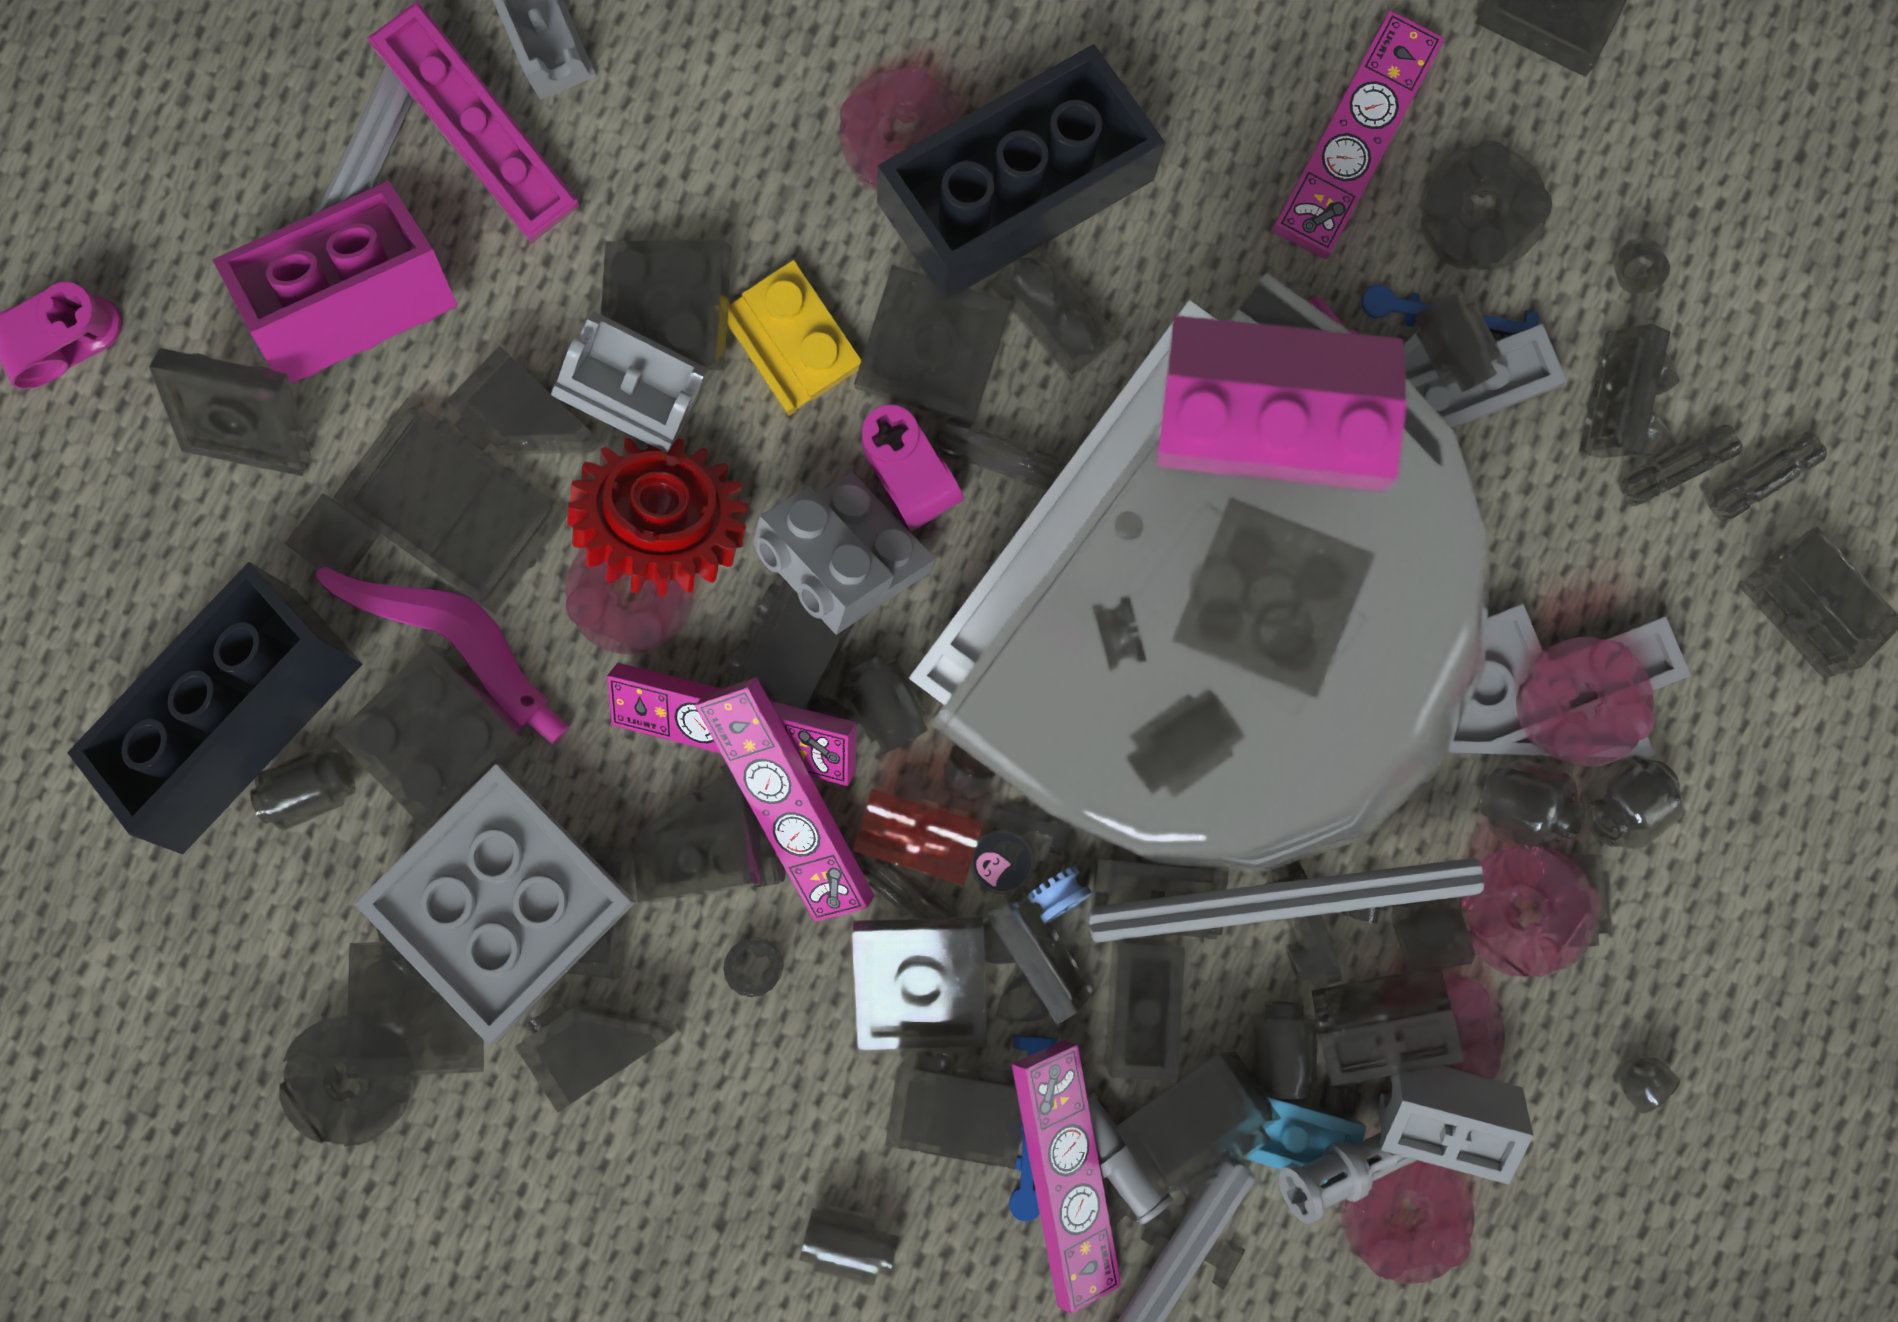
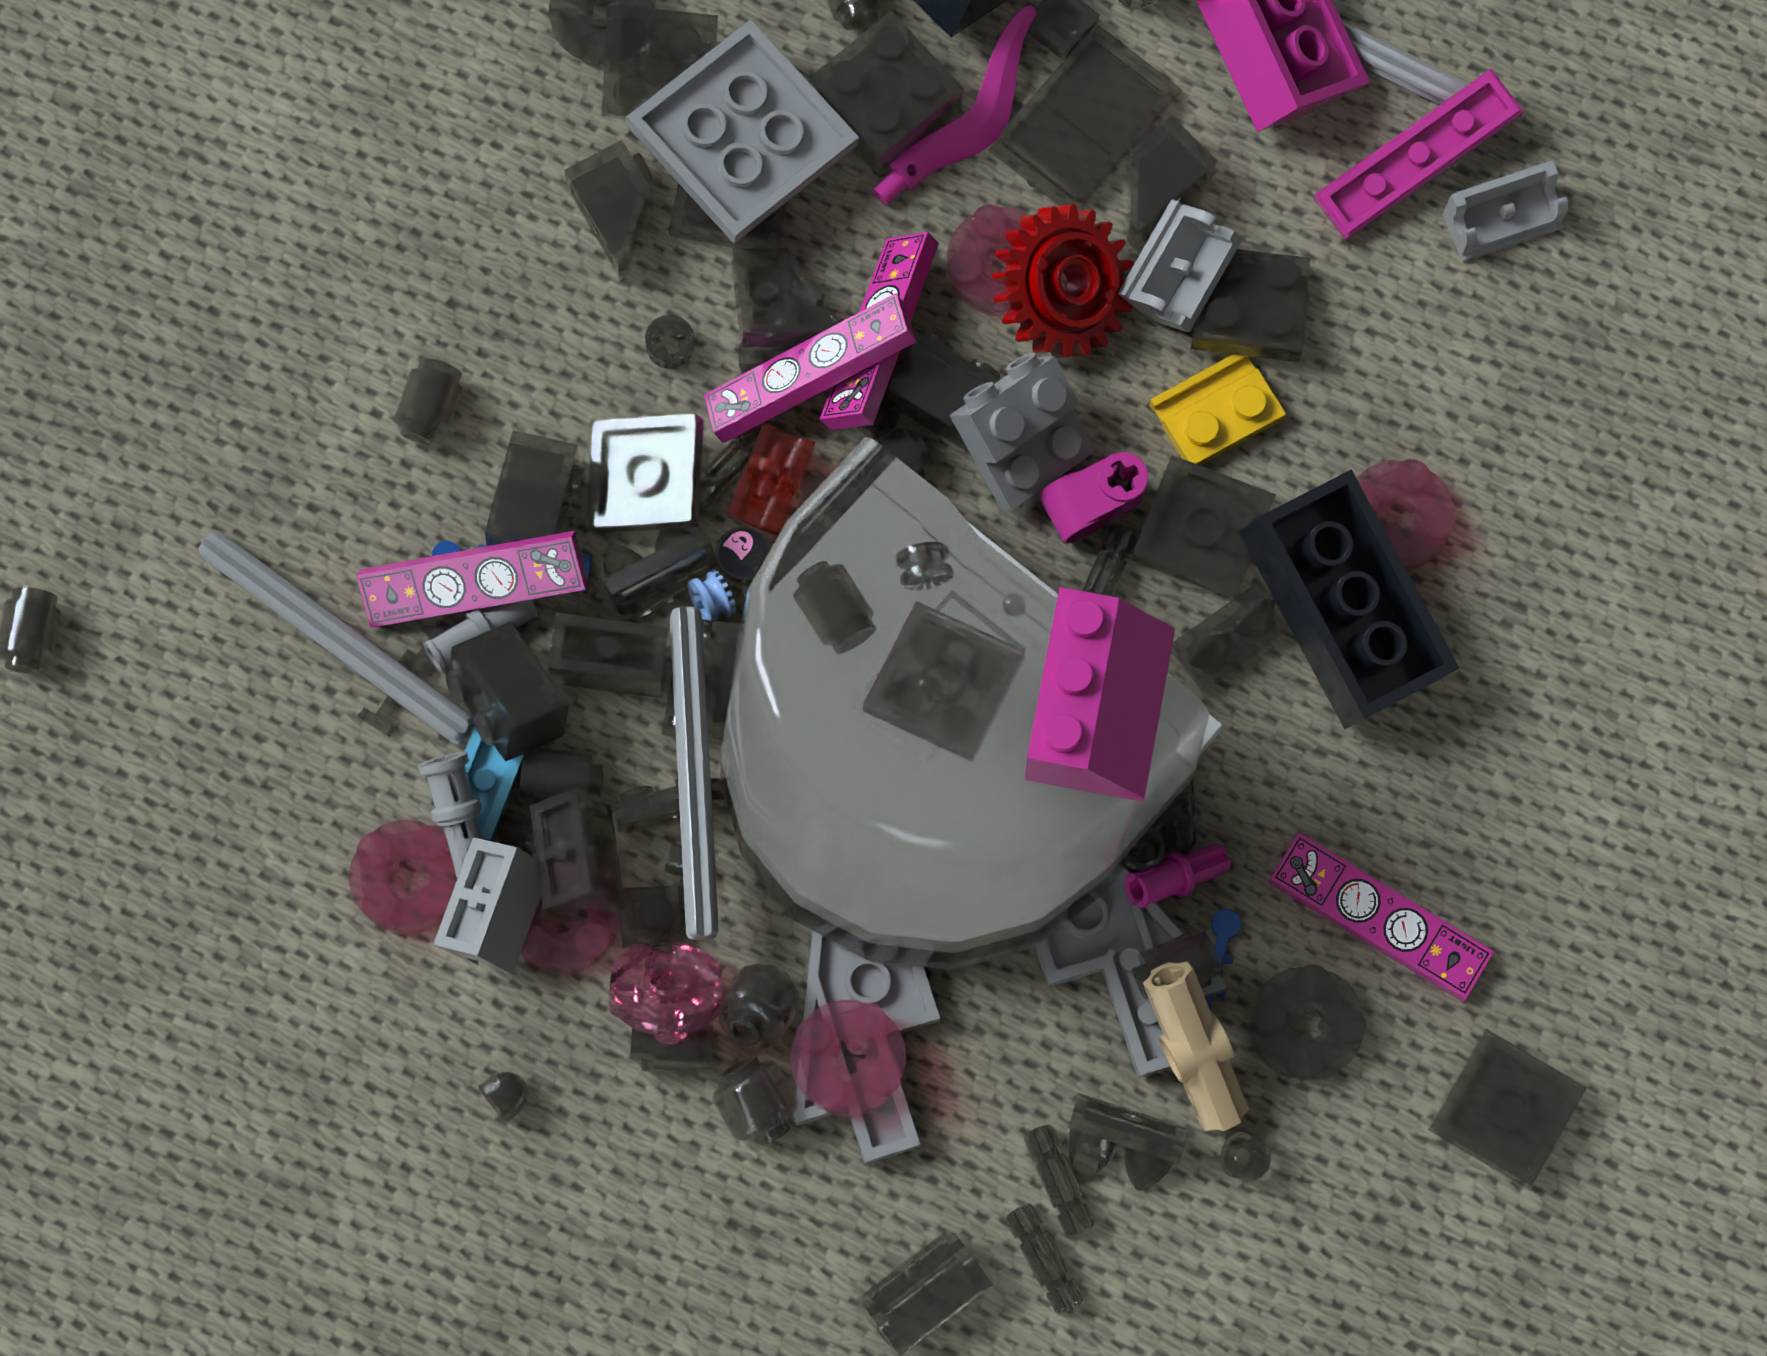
camera: 85 degrees right, 10 degrees down
(1546, 316) = (1196, 1046): none -> tan piece

